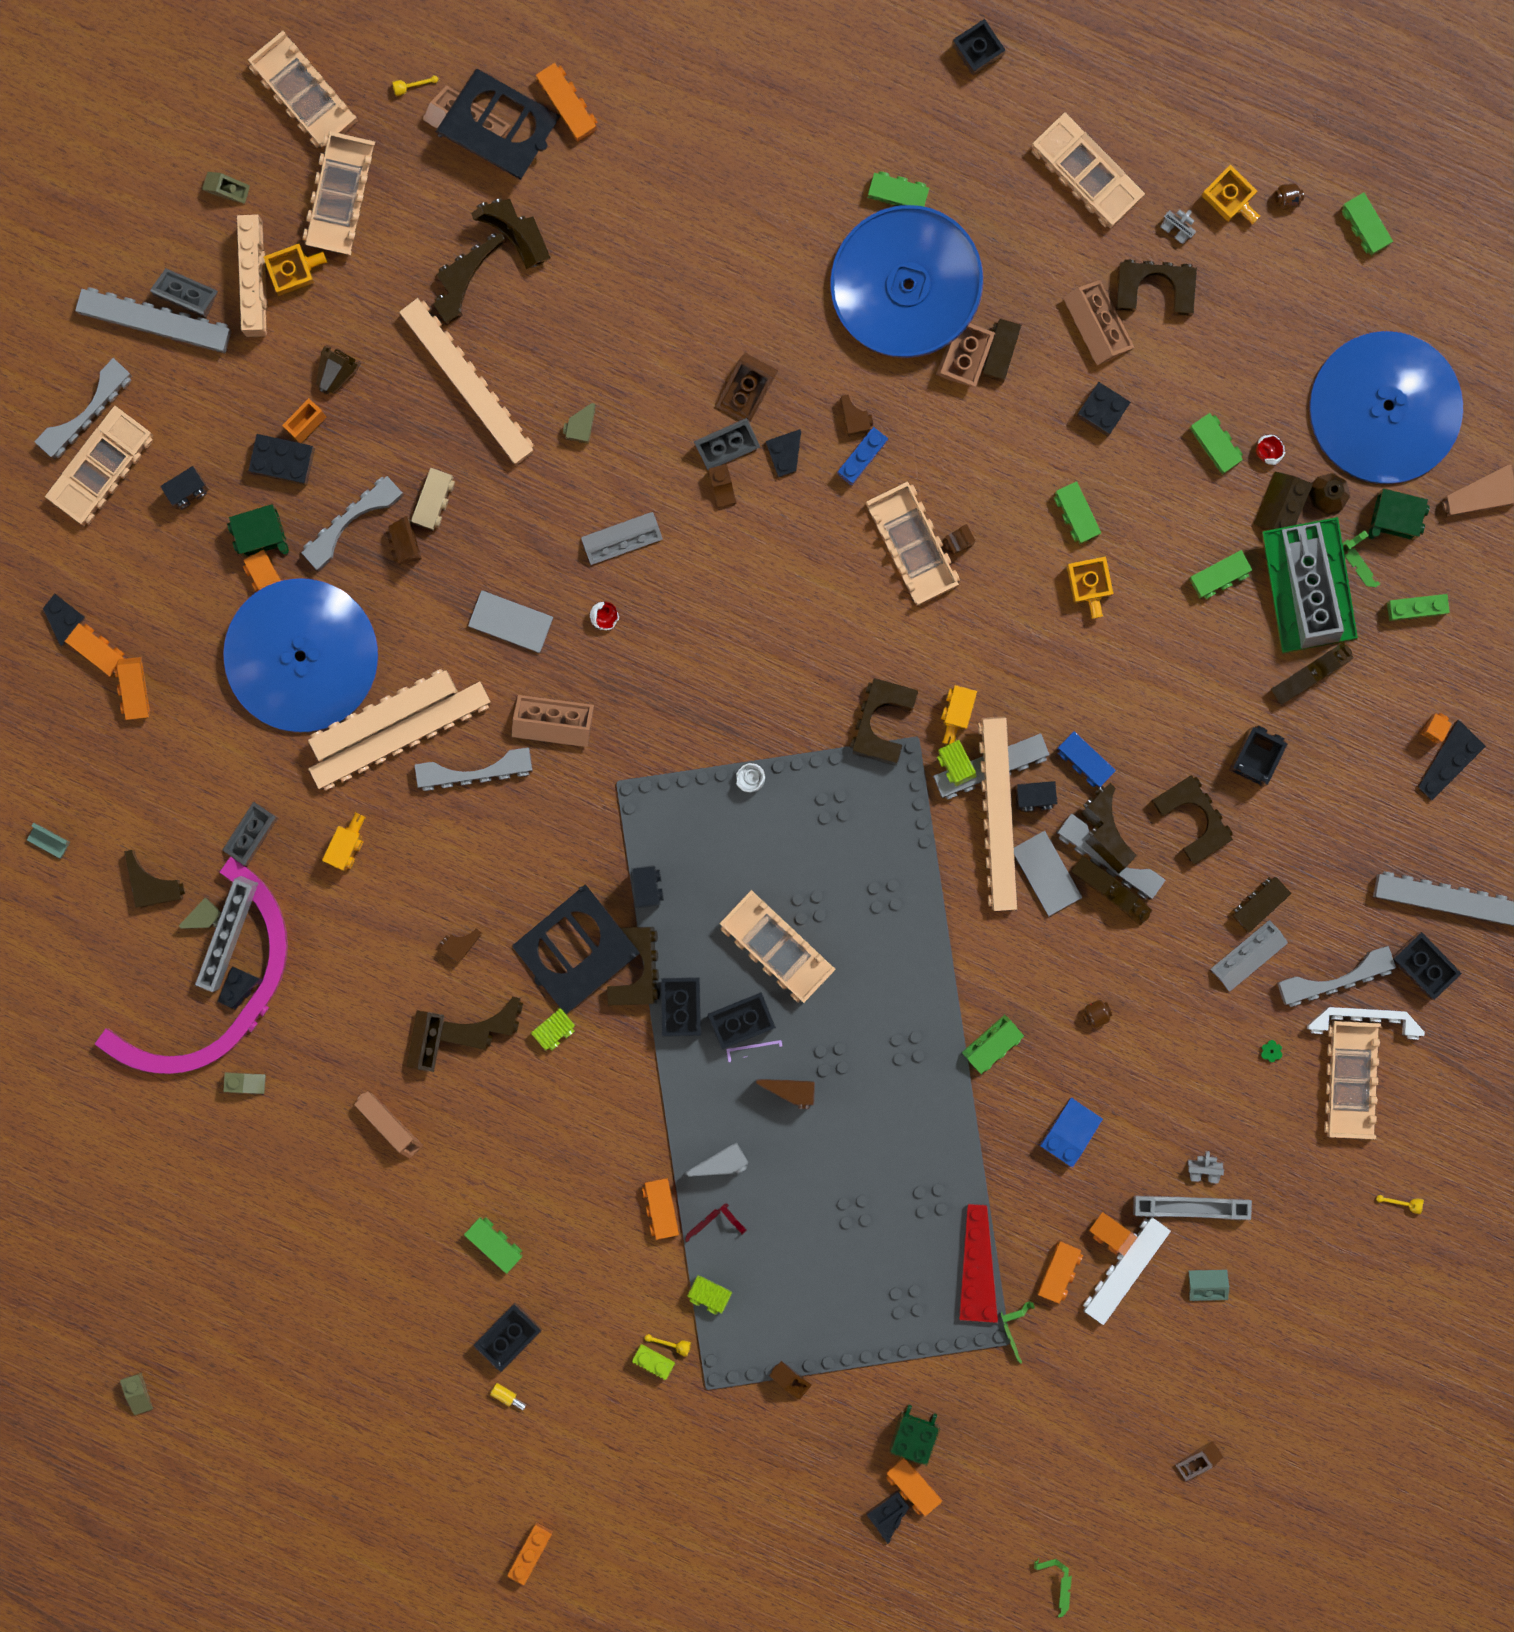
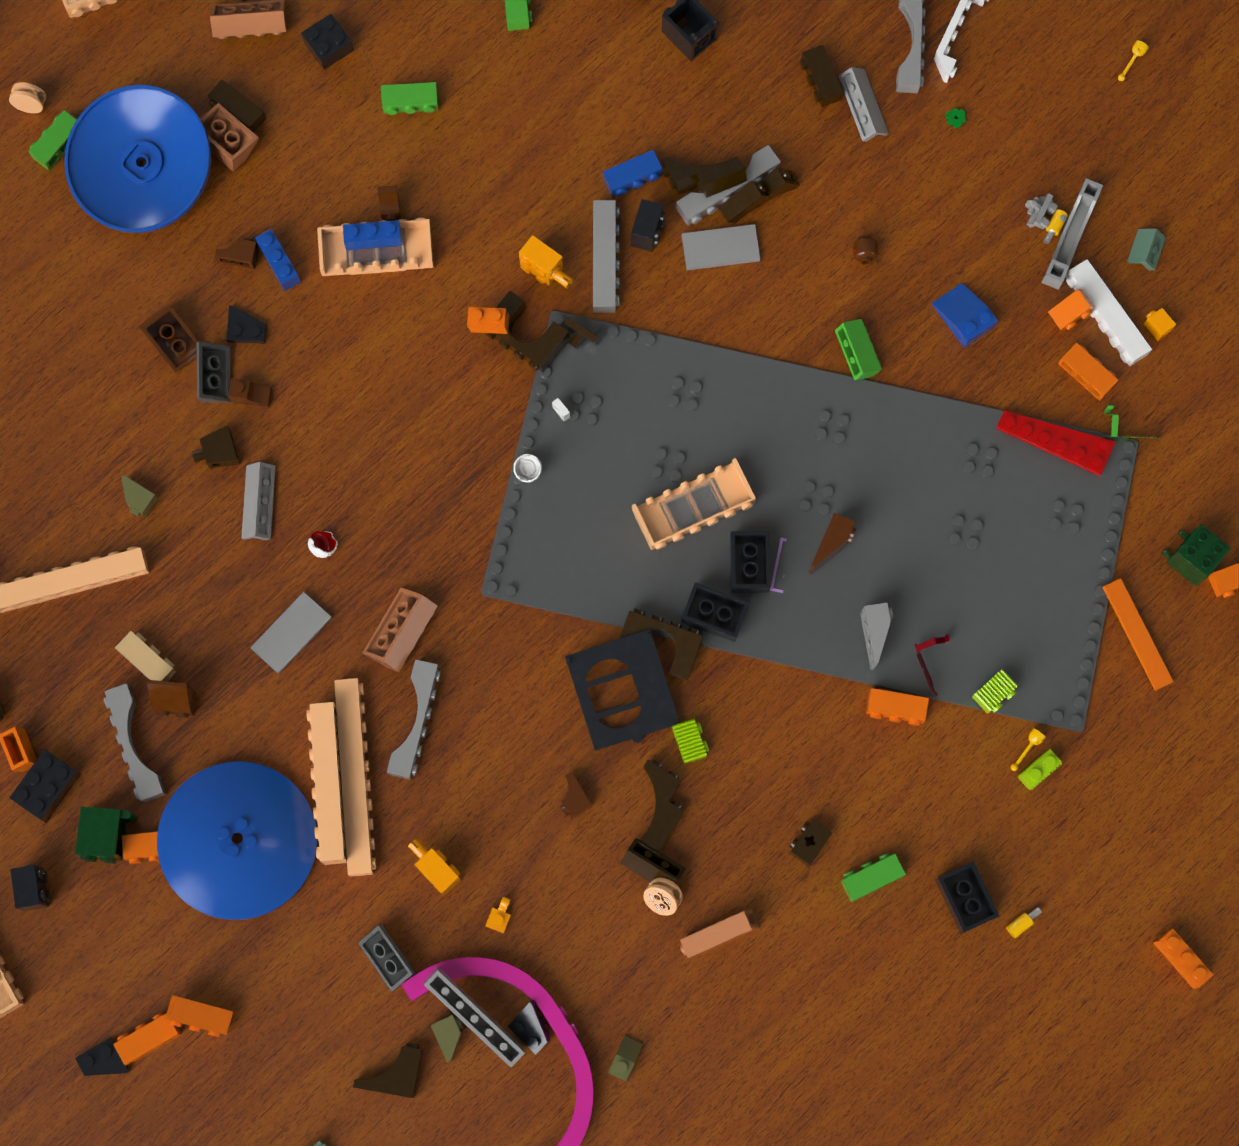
camera: 65 degrees left, 10 degrees down
(324, 919) = (499, 918): none -> light orange plate
(400, 1060) = (663, 896): none -> light nougat head
(510, 1183) = (818, 834): none -> dark brown brick
(646, 886) = (590, 596): black brick -> none
(655, 479) = (217, 449): none -> dark brown torso
(790, 1380) = (1102, 649): reddish brown arch -> none
(818, 1408) = (1137, 634): none -> orange tile
(820, 785) = (560, 409): none -> white tile
(877, 683) = (488, 320): none -> orange piece
(903, 775) = (580, 334): none -> dark brown tile
(921, 537) = (372, 235): none -> blue brick
(928, 147) = (27, 97): none -> light nougat head
(957, 763) = (590, 280): lime brick -> none
(999, 813) = (650, 262): light nougat brick -> none
(1090, 583) = (476, 108): light orange brick -> none
(1135, 1323) = (1159, 323): none -> light orange brick
(1197, 1188) = (1055, 225): none -> yellow piece
(1216, 833) = (742, 89): dark brown arch -> none
(1352, 1080) = (1007, 59): light nougat window -> none

